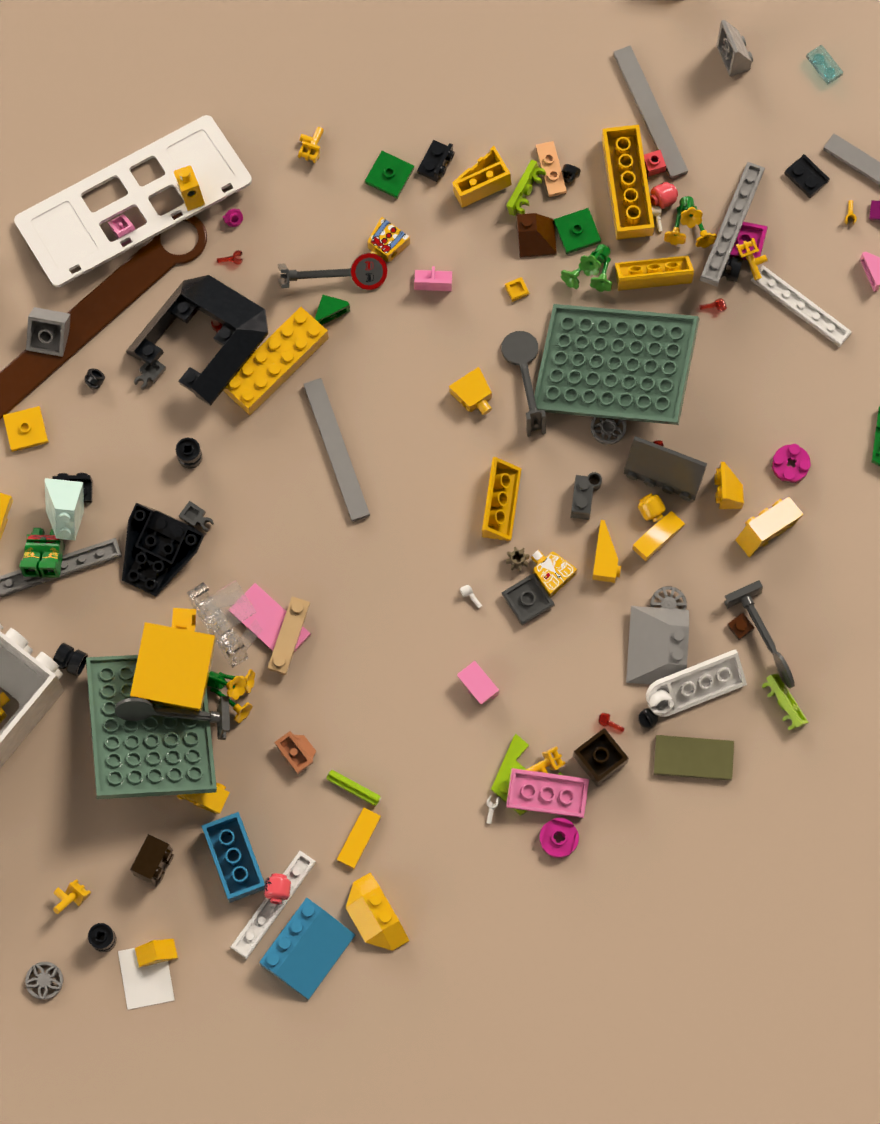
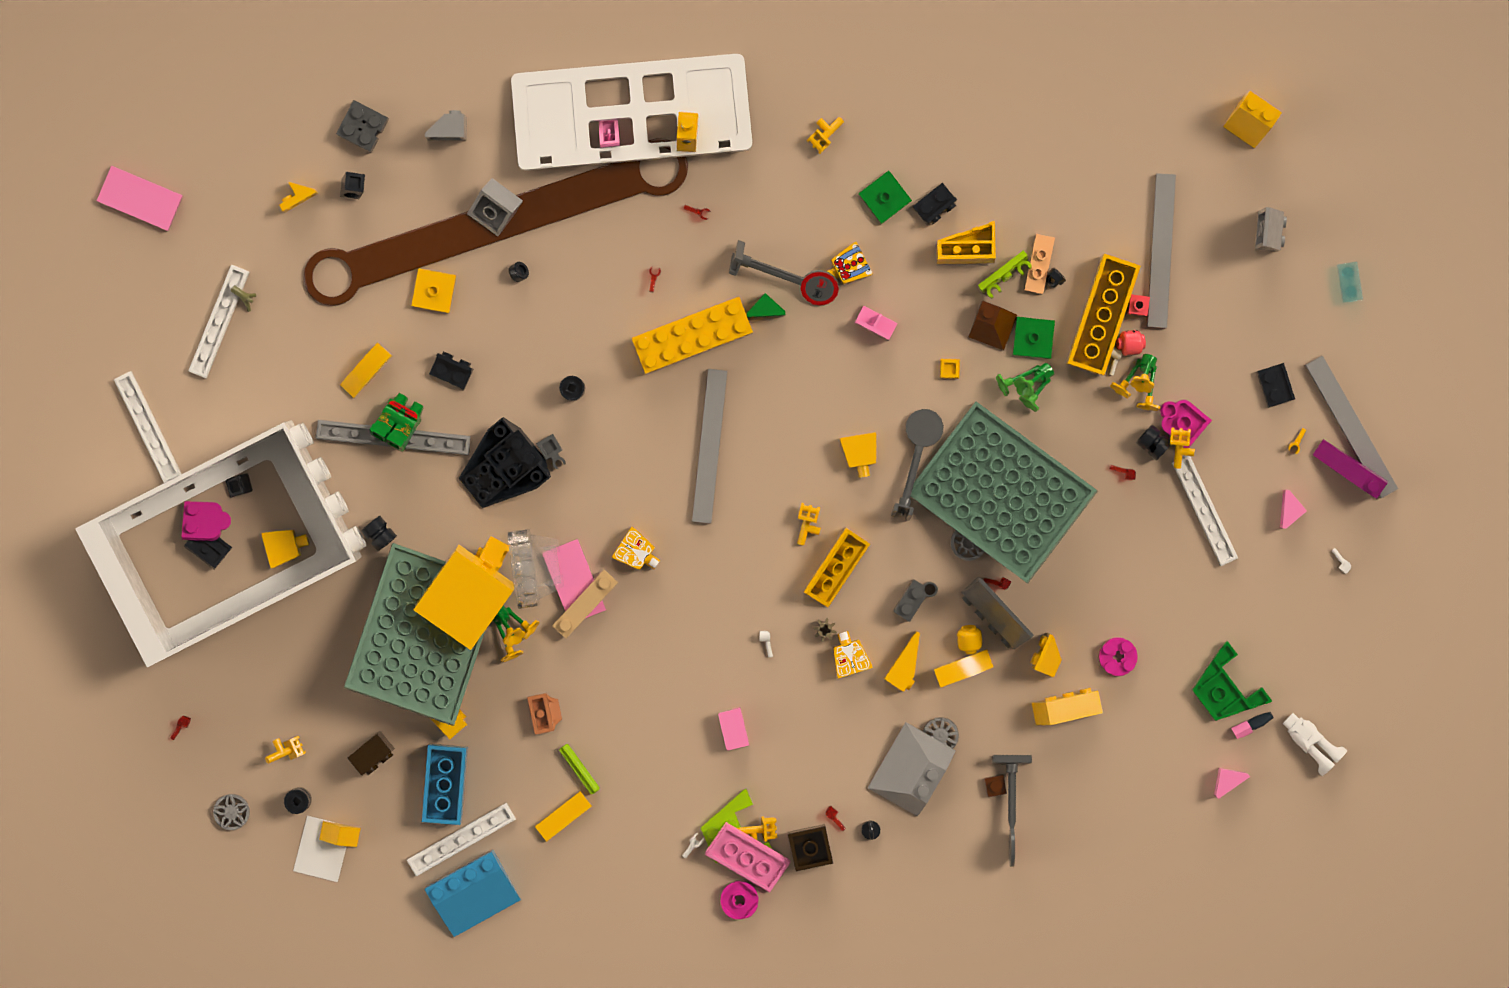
camera: 30 degrees right, 15 degrees up
(64, 507) = (434, 390): light aqua slope -> none
(140, 709) = (488, 656): dark grey piece -> none
(150, 373) = (574, 289): dark grey plate -> none
(233, 217) = (718, 172): dark pink plate -> none
(240, 335) = (670, 300): black slope -> none
(277, 888) = (470, 831): coral head -> none
(313, 568) = (636, 550): none -> torso
(374, 915) = (545, 891): yellow wedge -> none
(456, 478) = (807, 518): none -> yellow arm
(528, 599) = (816, 670): dark grey plate -> none
(654, 273) = (1084, 412): yellow slope -> none
(693, 757) = (893, 884): olive tile -> none
(696, 684) = (926, 823): white plate -> none
(732, 224) = (1179, 404): light grey tile -> none
(785, 701) = (1000, 874): lime plate -> none

